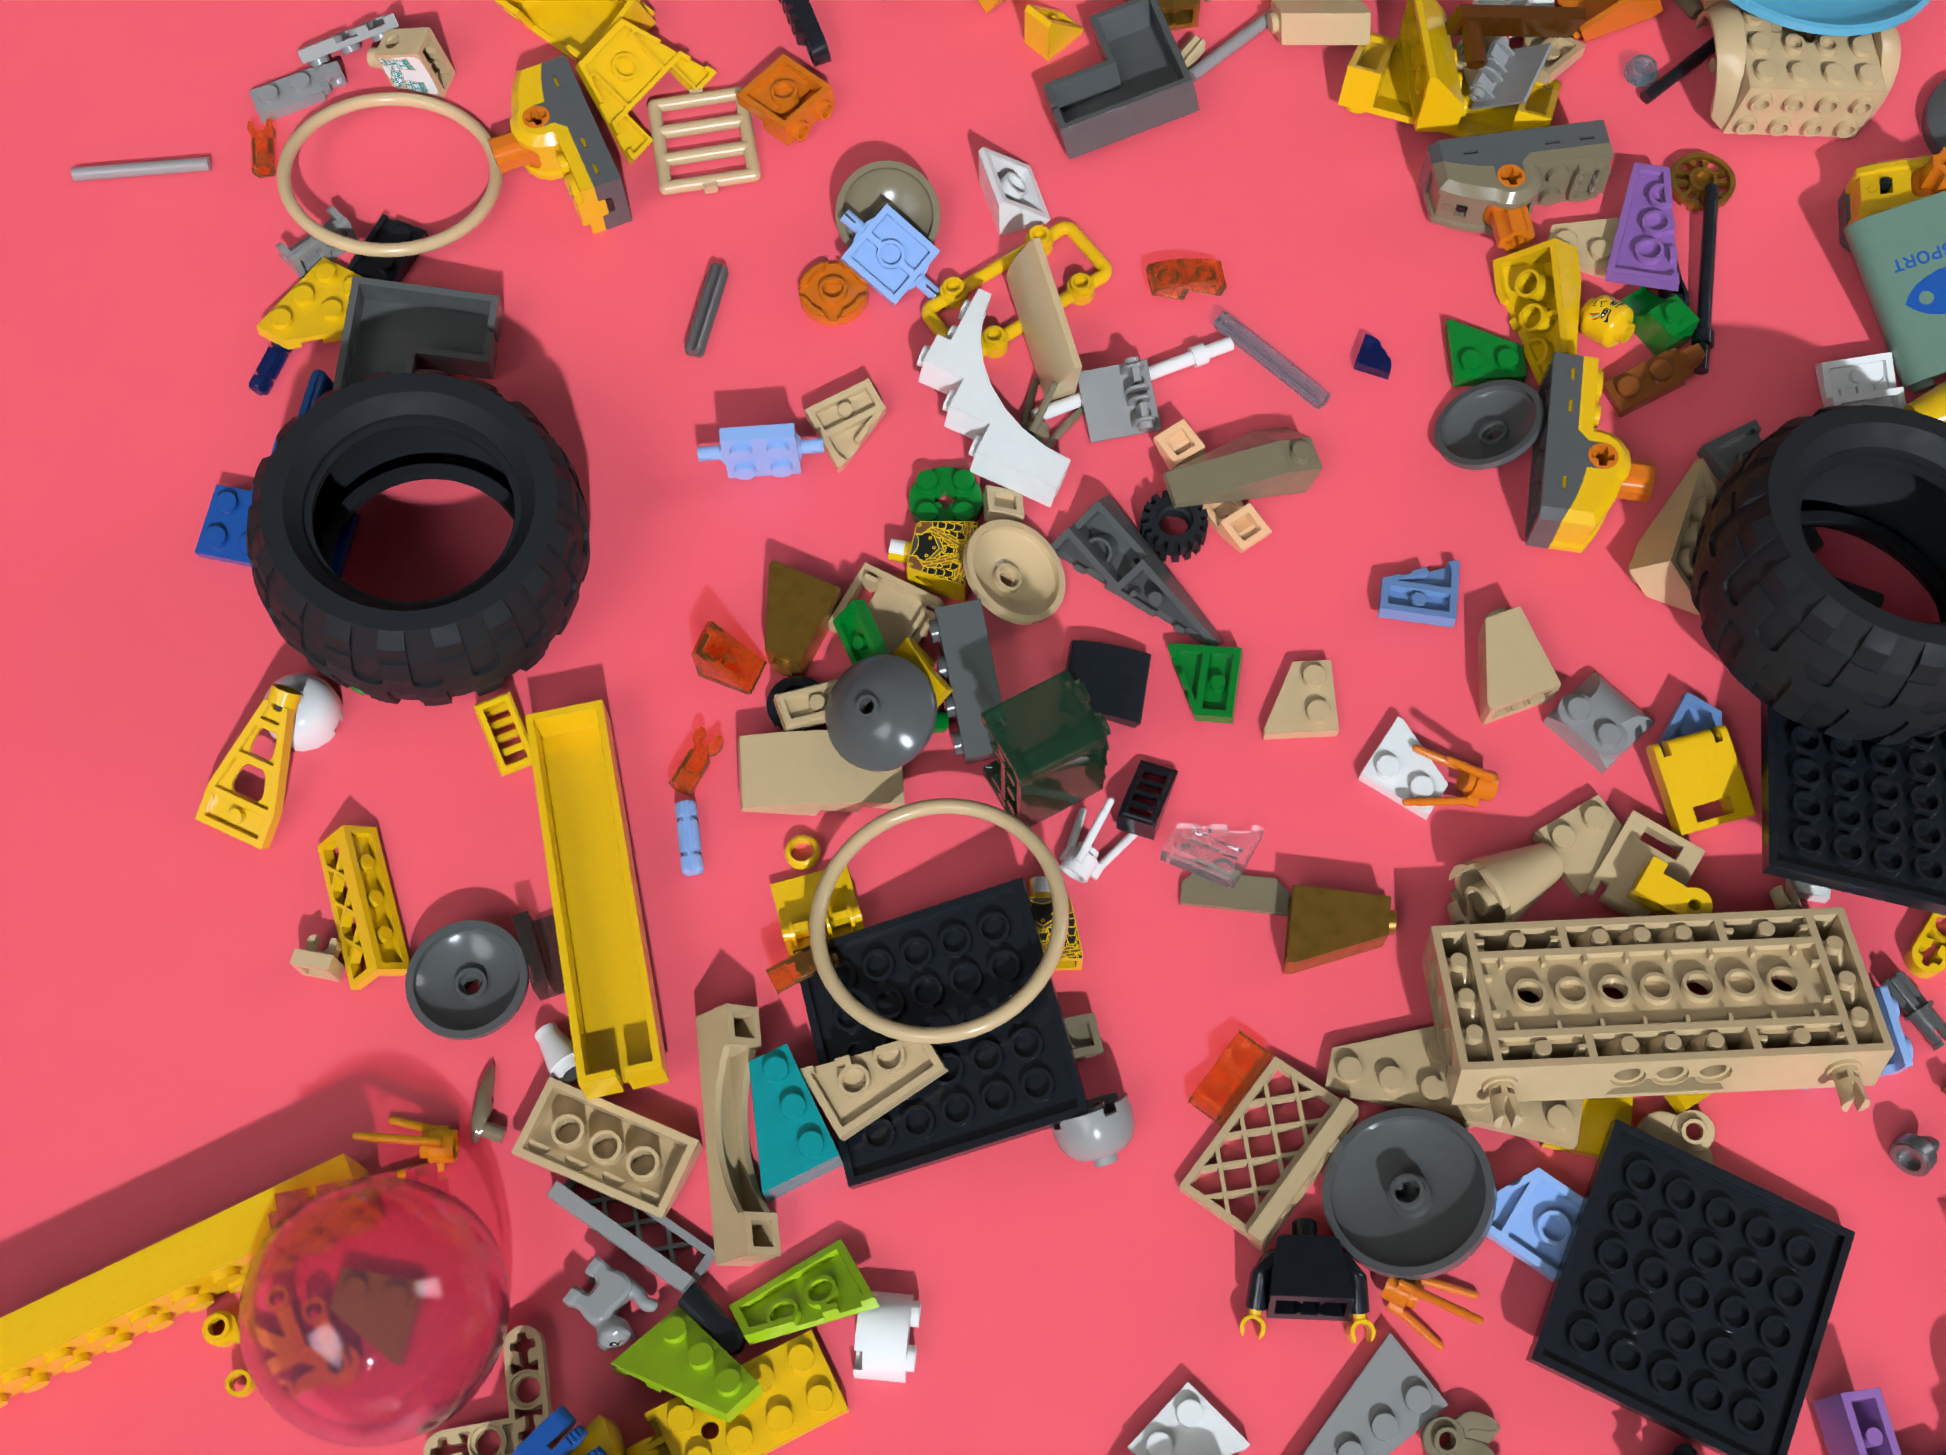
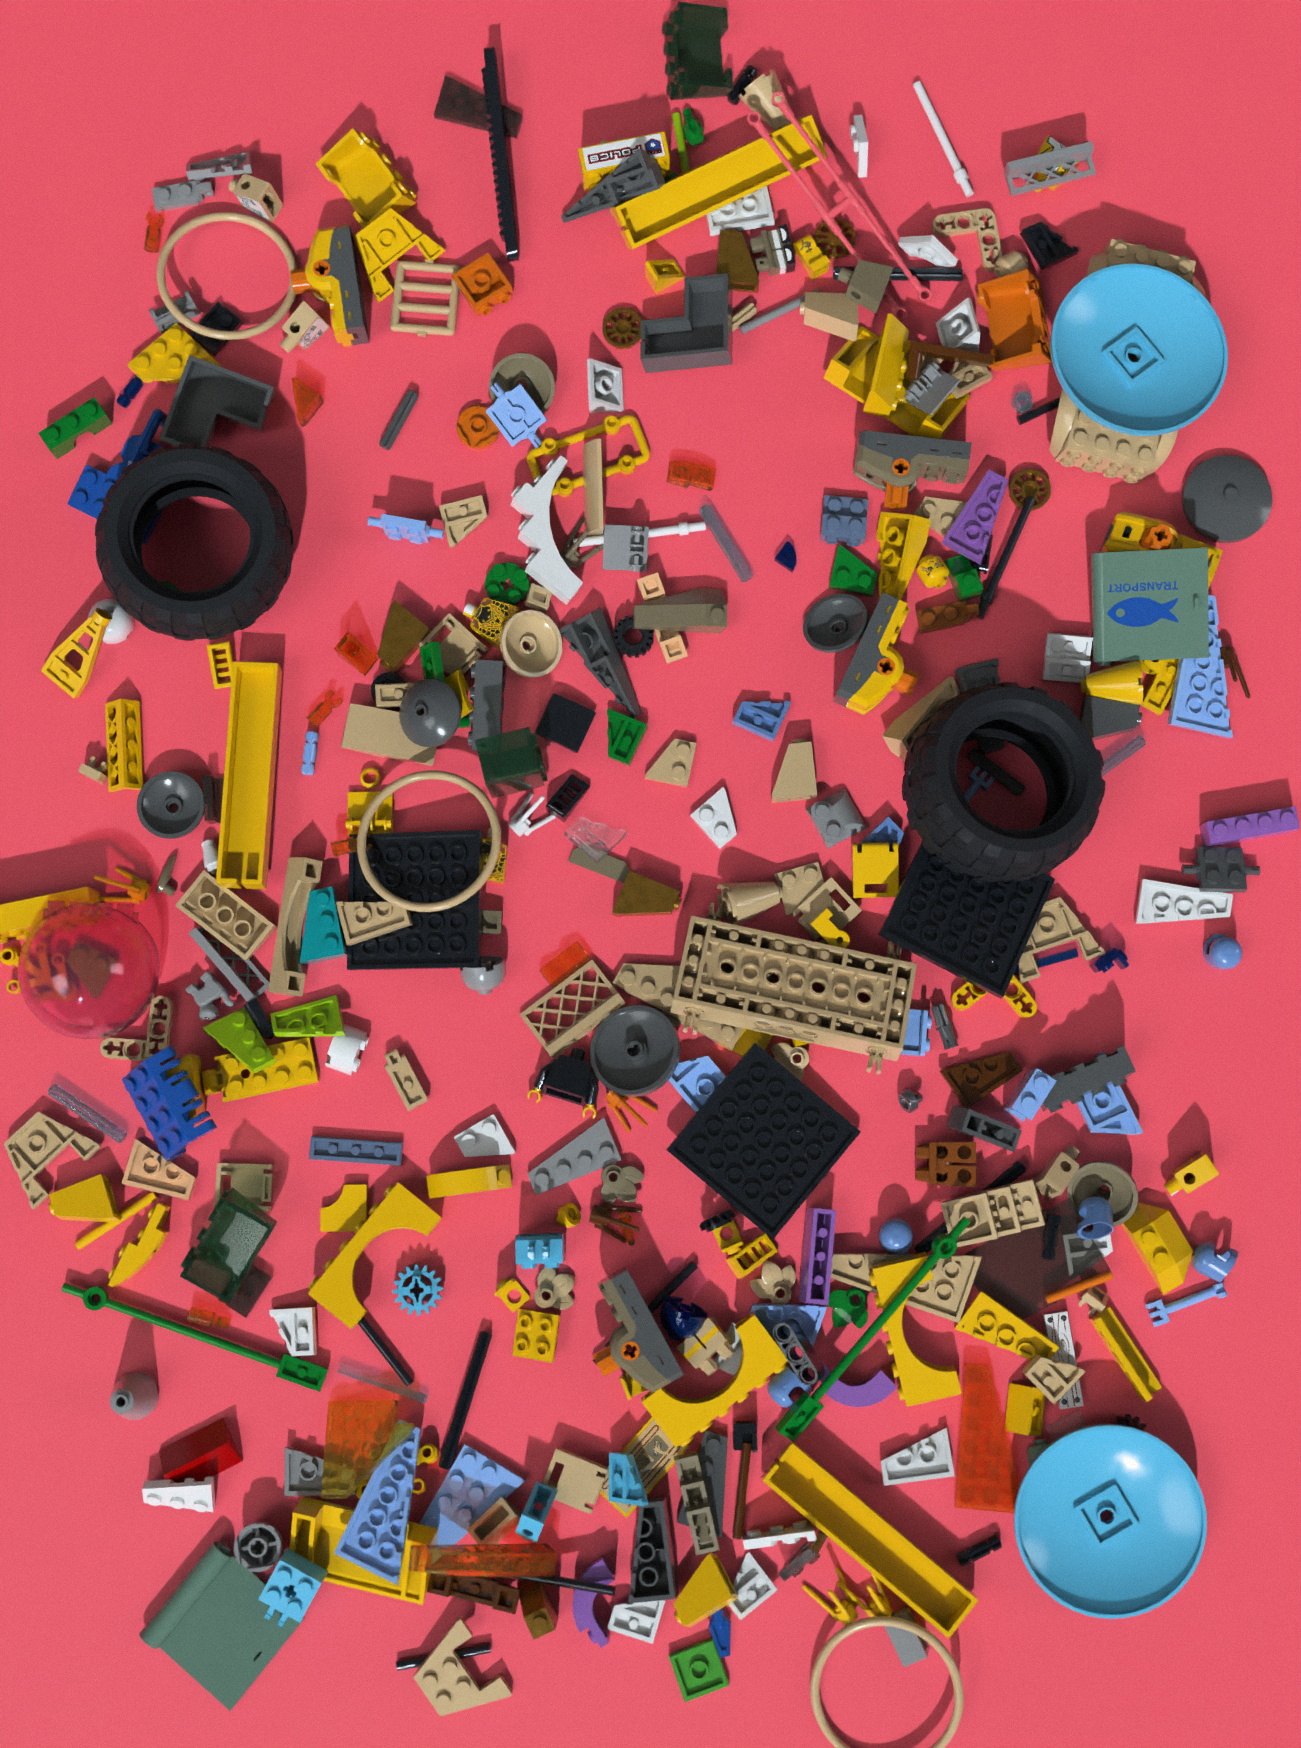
camera: 15 degrees right, 15 degrees up
(141, 169) = (74, 227): light grey bar -> none
(167, 449) = (86, 418): none -> green arch
(526, 213) = (303, 328): none -> tan torso
(556, 312) = (306, 401): none -> clear orange slope
(1008, 1362) = (405, 1080): none -> tan hinge
(1014, 113) = (622, 328): none -> pearl gold wheel
(1441, 286) = (844, 520): none -> sand blue plate
(1472, 780) = (750, 836): orange plant -> none

